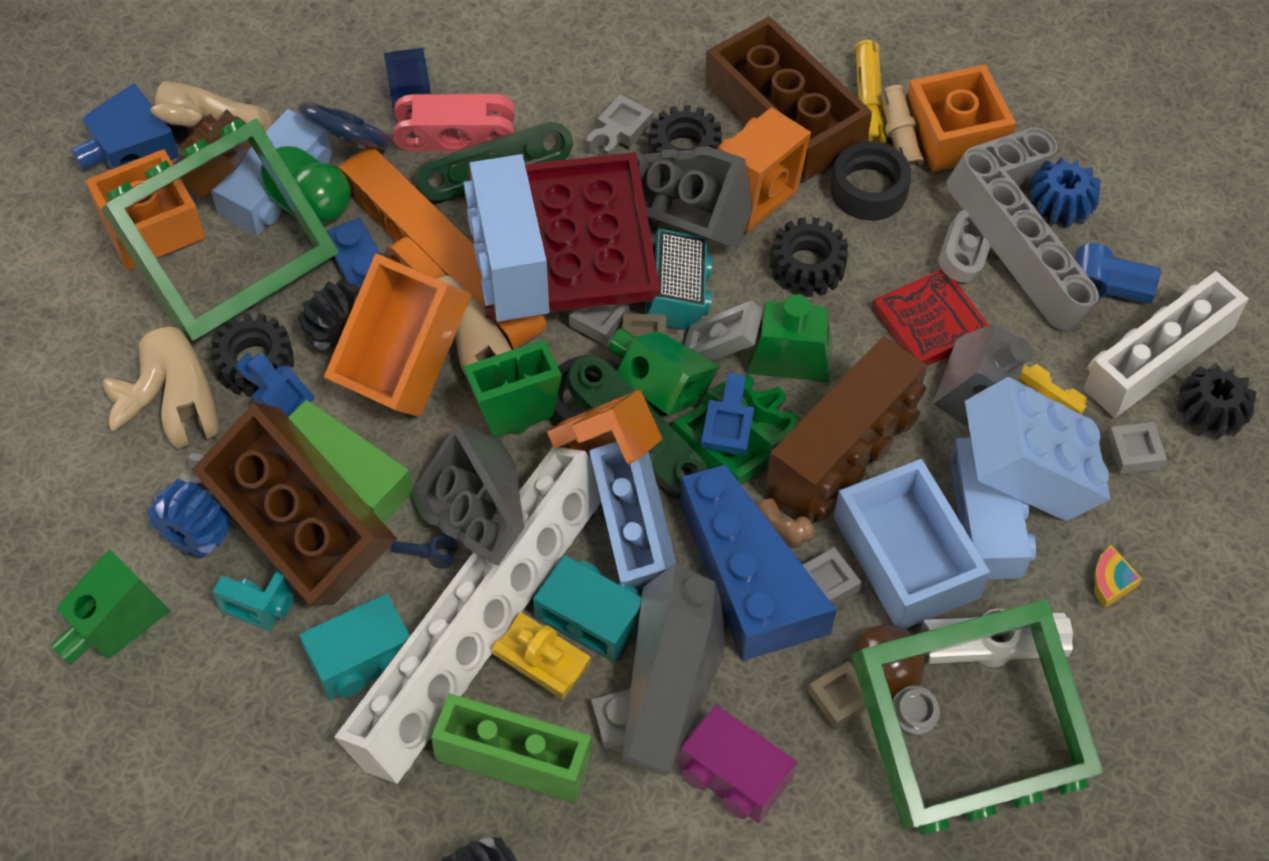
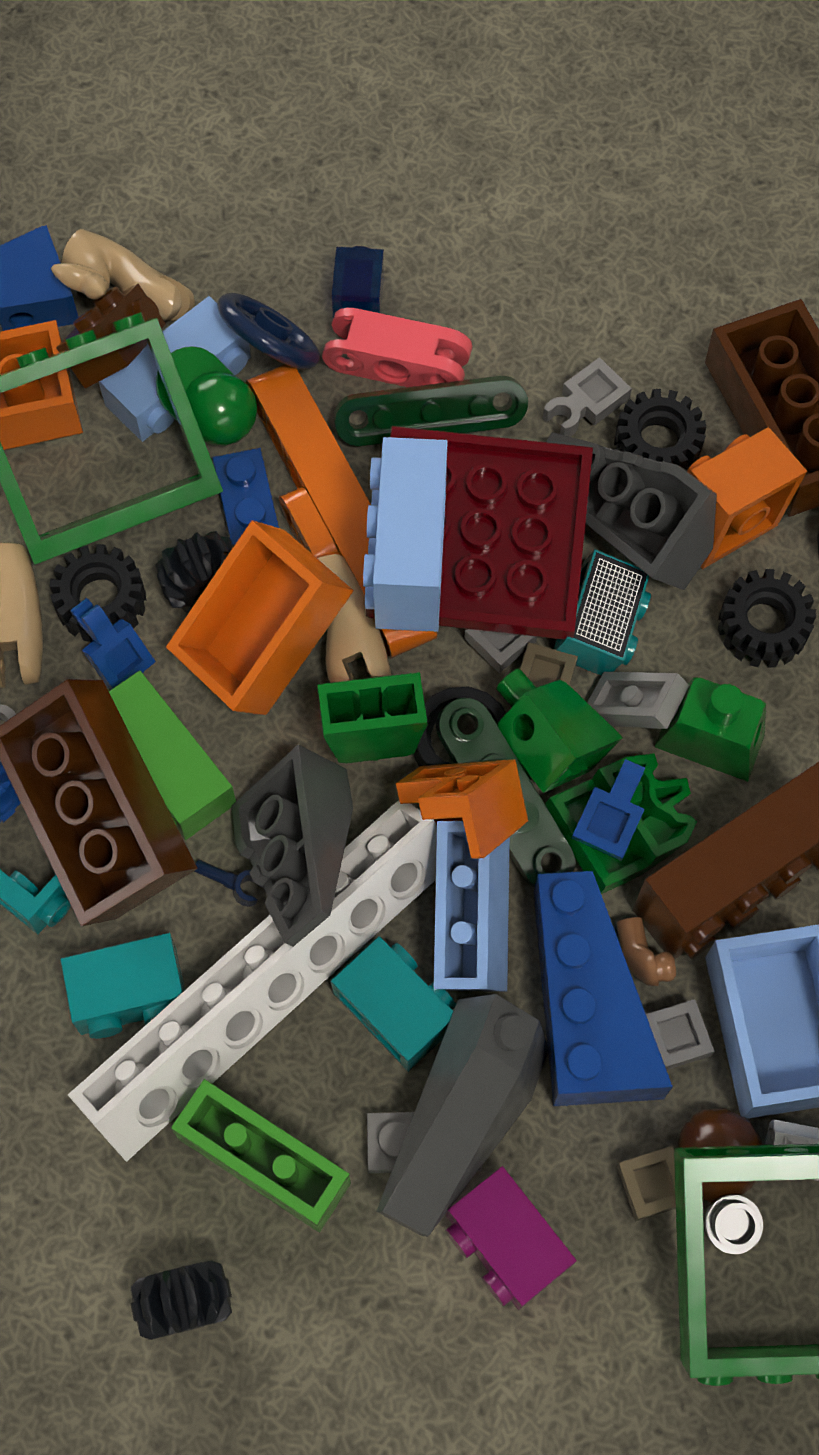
camera: 15 degrees right, 10 degrees up
(542, 655) = (324, 1049): yellow hips -> none

